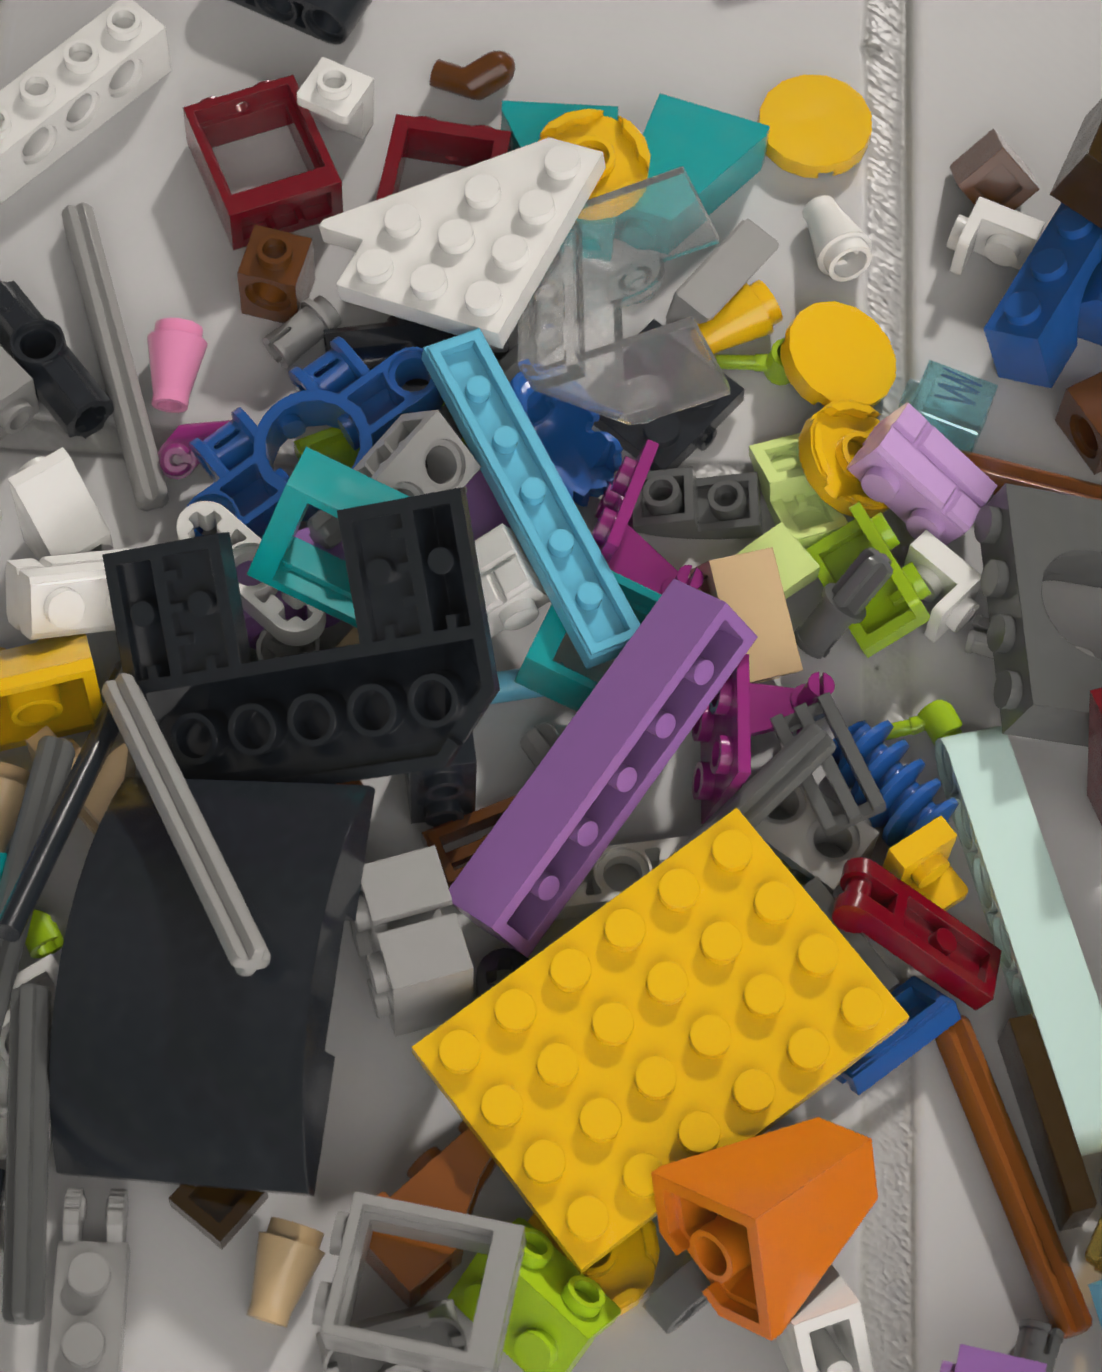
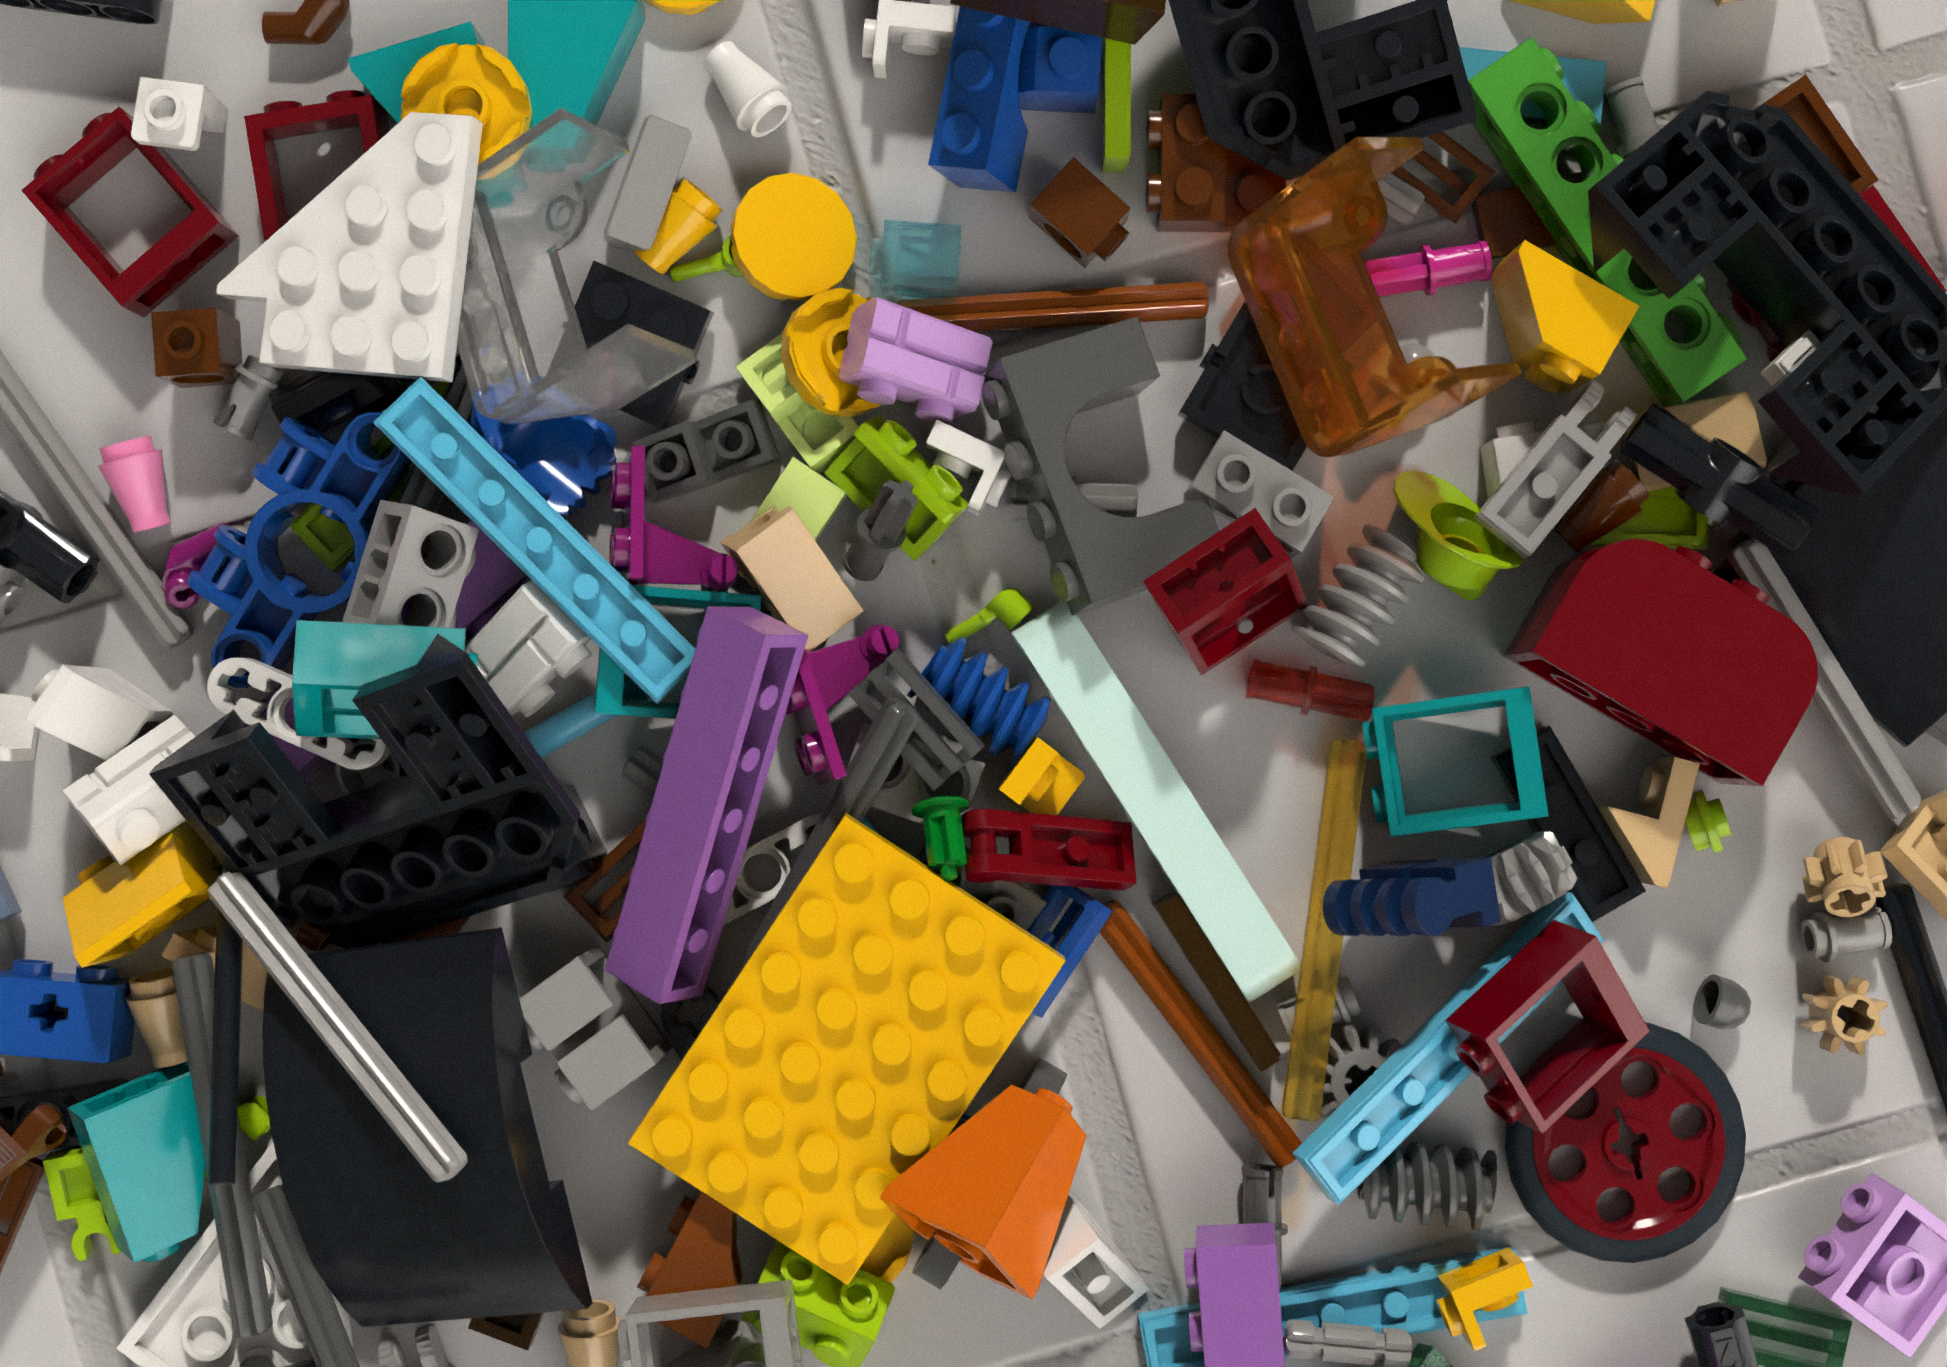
camera: 15 degrees left, 25 degrees up
(824, 853) = (943, 833): none -> green piece

